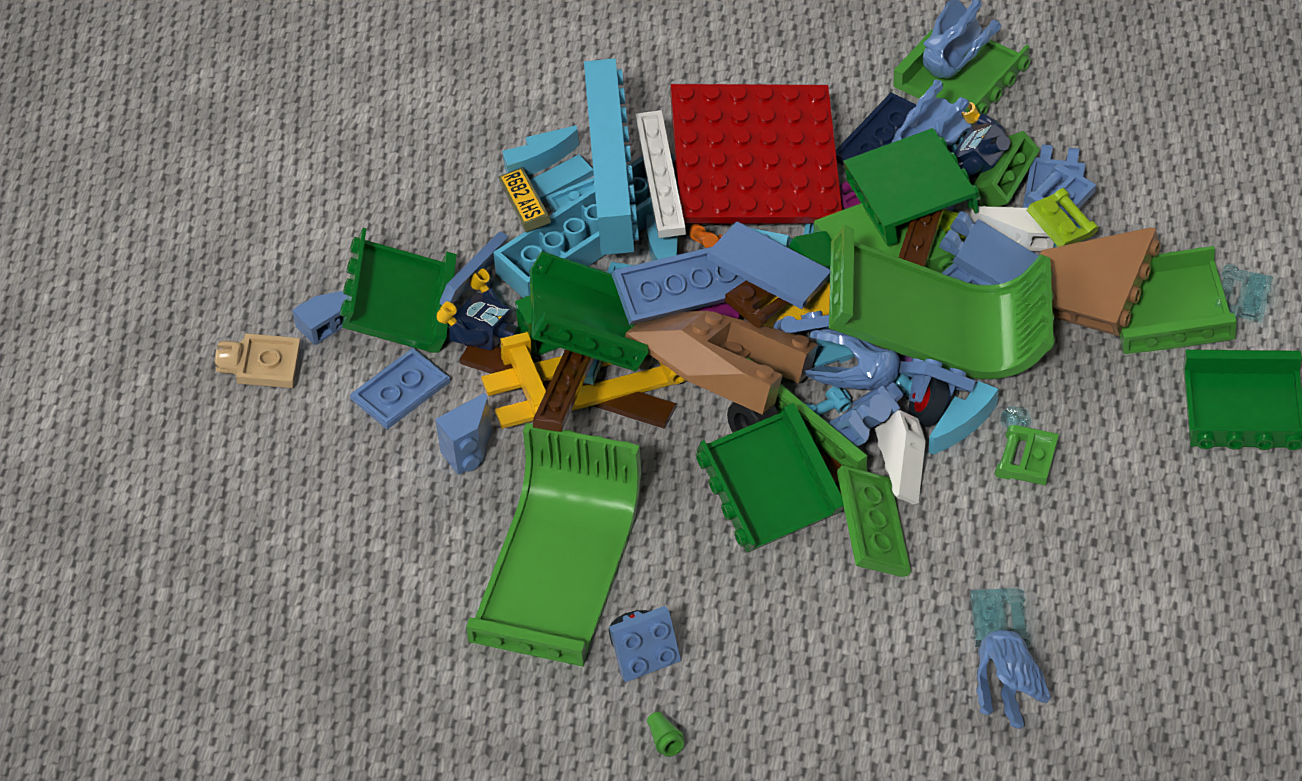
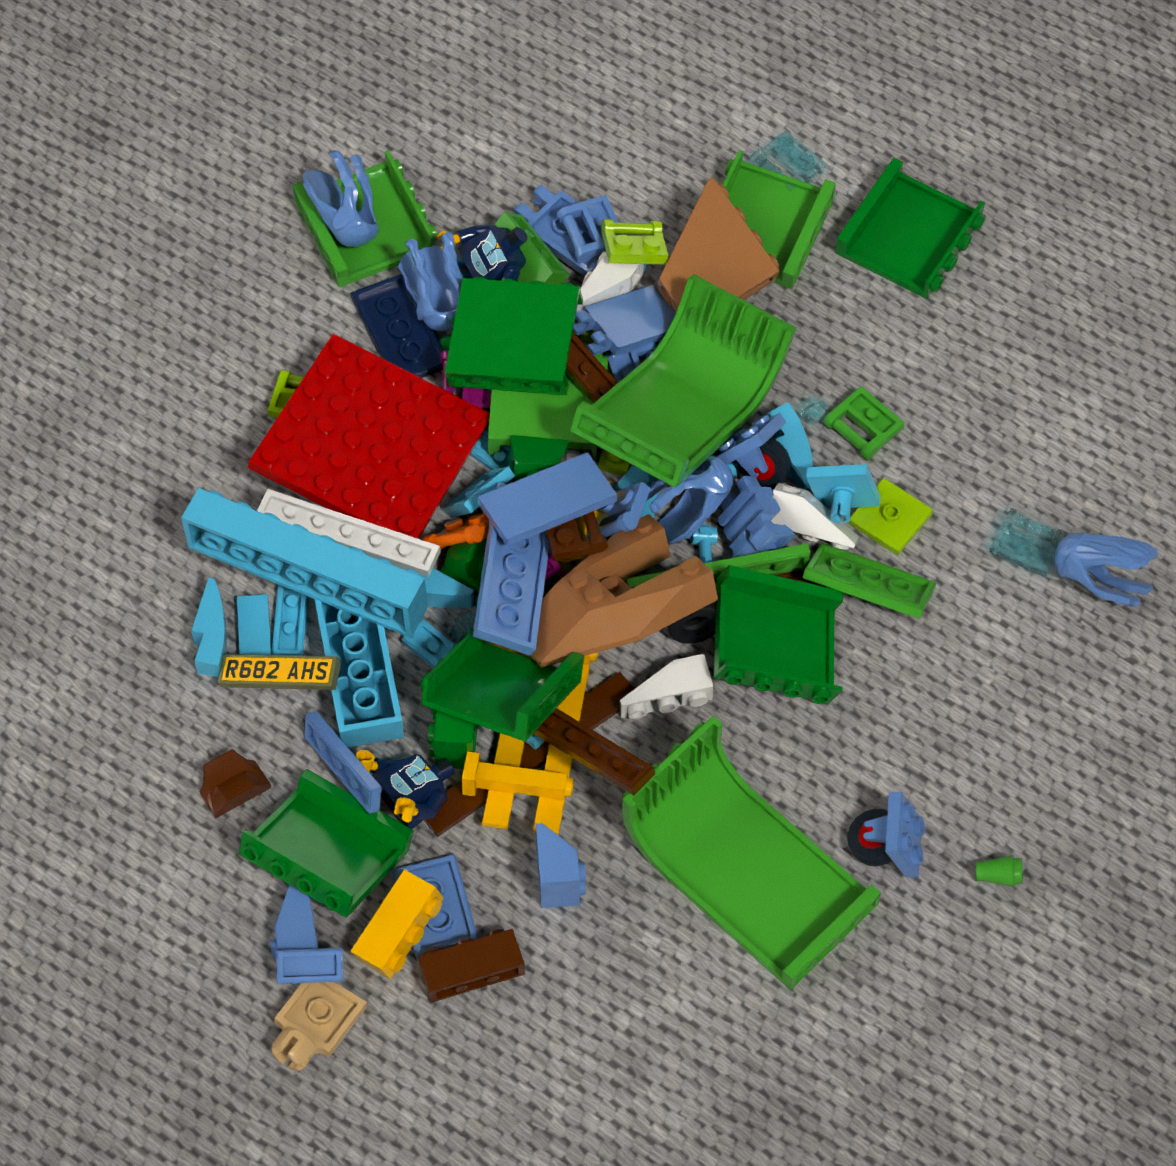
camera: 65 degrees left, 10 degrees up
(296, 330) = (309, 965): none -> medium blue tile
(360, 428) = (471, 964): none -> reddish brown brick
(362, 365) = (398, 924): none -> yellow brick
(425, 225) = (231, 782): none -> reddish brown slope
(675, 436) = (675, 685): none -> white slope
(939, 458) = (843, 488): none -> medium azure tile
(952, 514) = (895, 520): none -> lime plate

